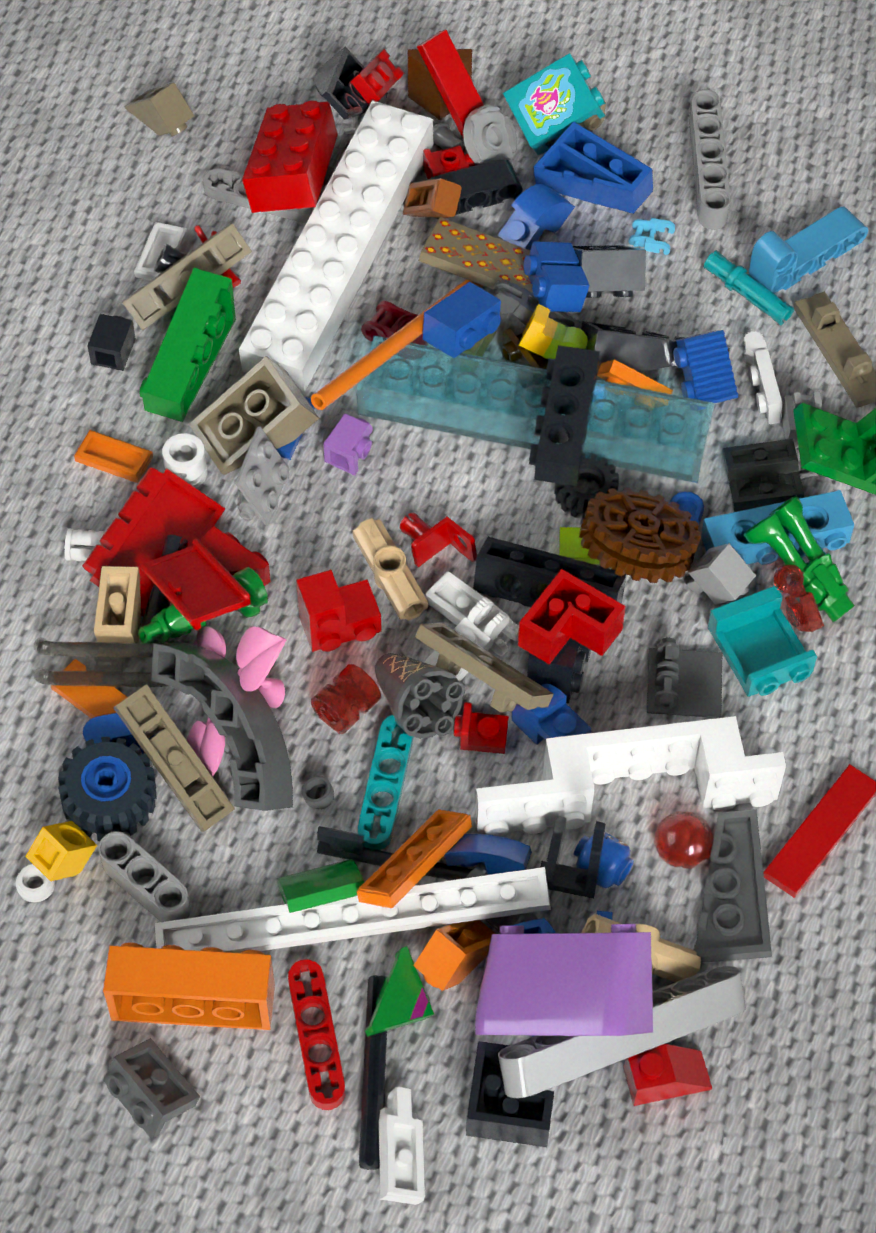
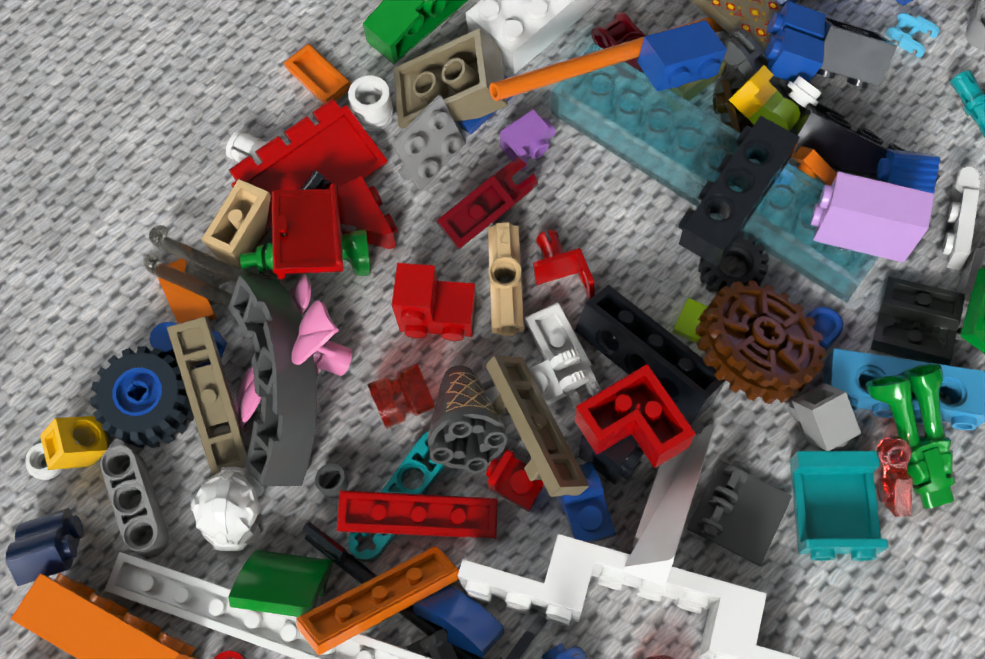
camera: 30 degrees right, 10 degrees up
(86, 939) = (44, 546): none -> dark blue brick
(238, 849) = (228, 508): none -> white helmet
(342, 510) = (485, 204): none -> dark red plate
(410, 787) = (417, 514): none -> red tile
(582, 316) = (803, 92): none -> white plate
(627, 689) = (667, 512): none -> white wedge
(687, 396) = (871, 216): none -> lavender brick

